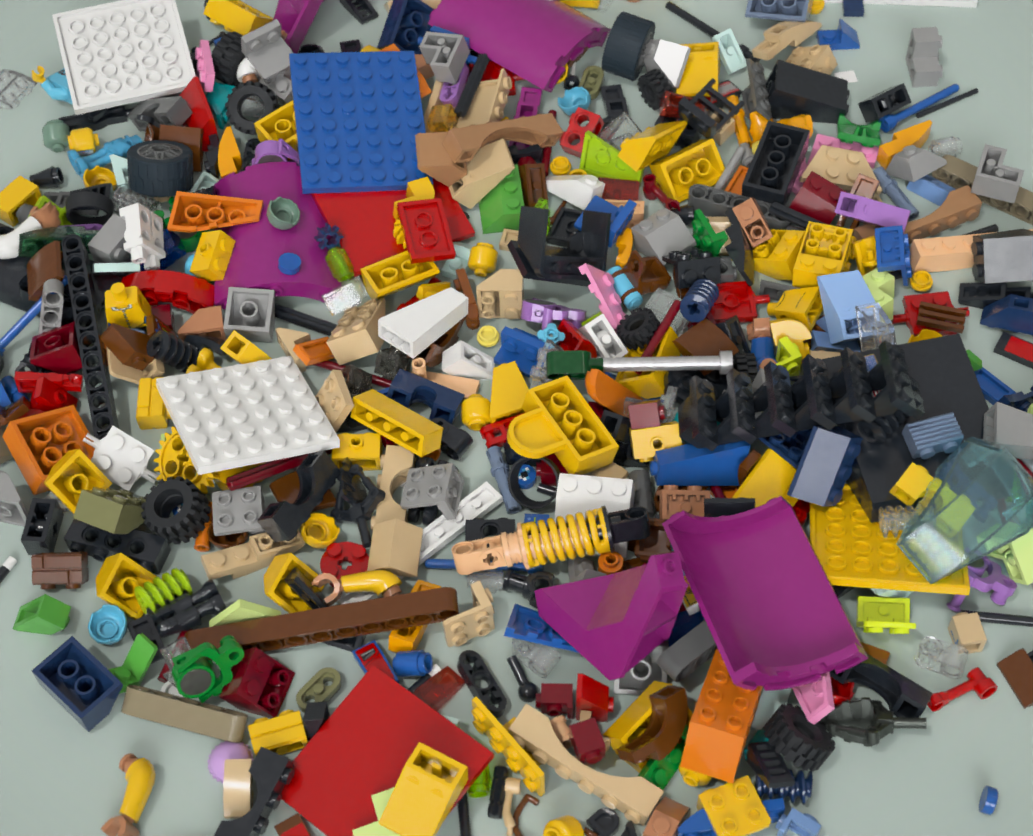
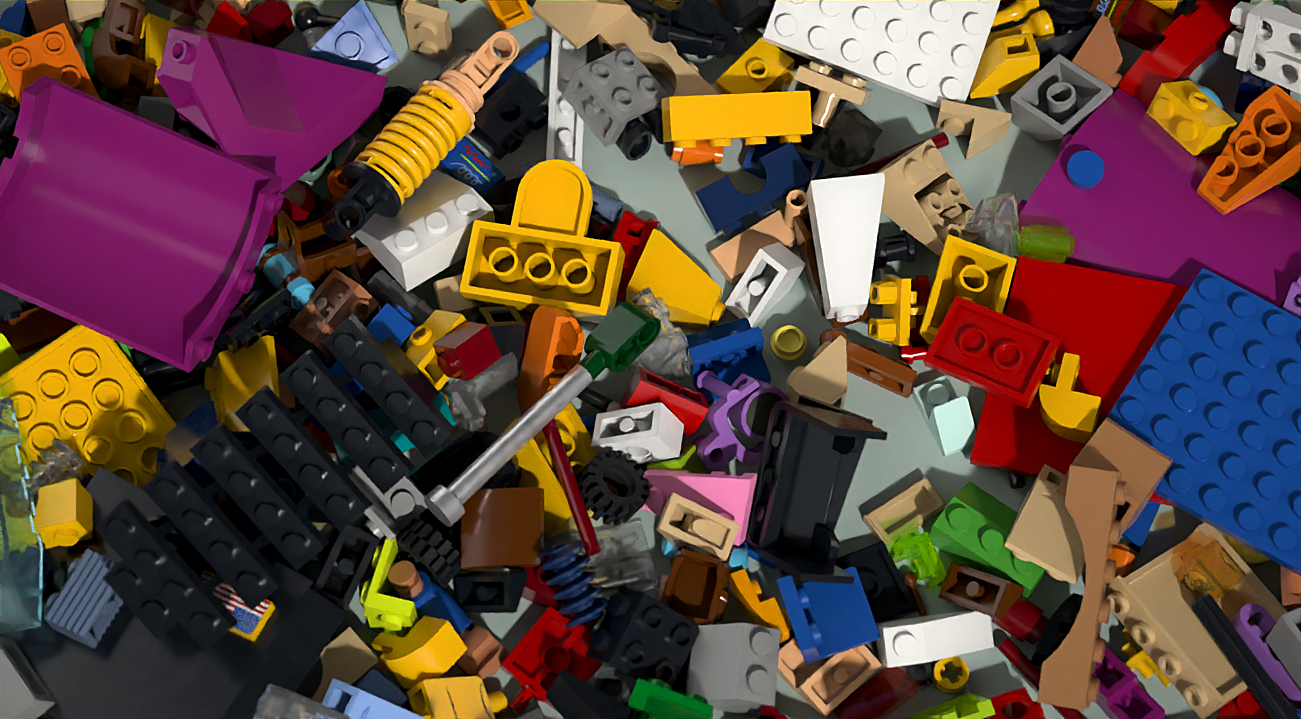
camera: 130 degrees right, 10 degrees up
(283, 213) = (1172, 209): sand green hair -> none
(304, 320) = (1009, 174): black axle -> none
(314, 351) = (940, 125): orange tile -> none
(324, 232) = (1096, 251): dark blue gear -> none
(454, 440) = (676, 178): black piece -> none
(475, 412) = (687, 230): yellow head -> none
(483, 259) = (913, 430): yellow head -> none
(551, 329) = (698, 383): medium azure plate -> none
(560, 166) = (994, 672): yellow plate -> none
(626, 276) = (697, 527): none -> tan slope

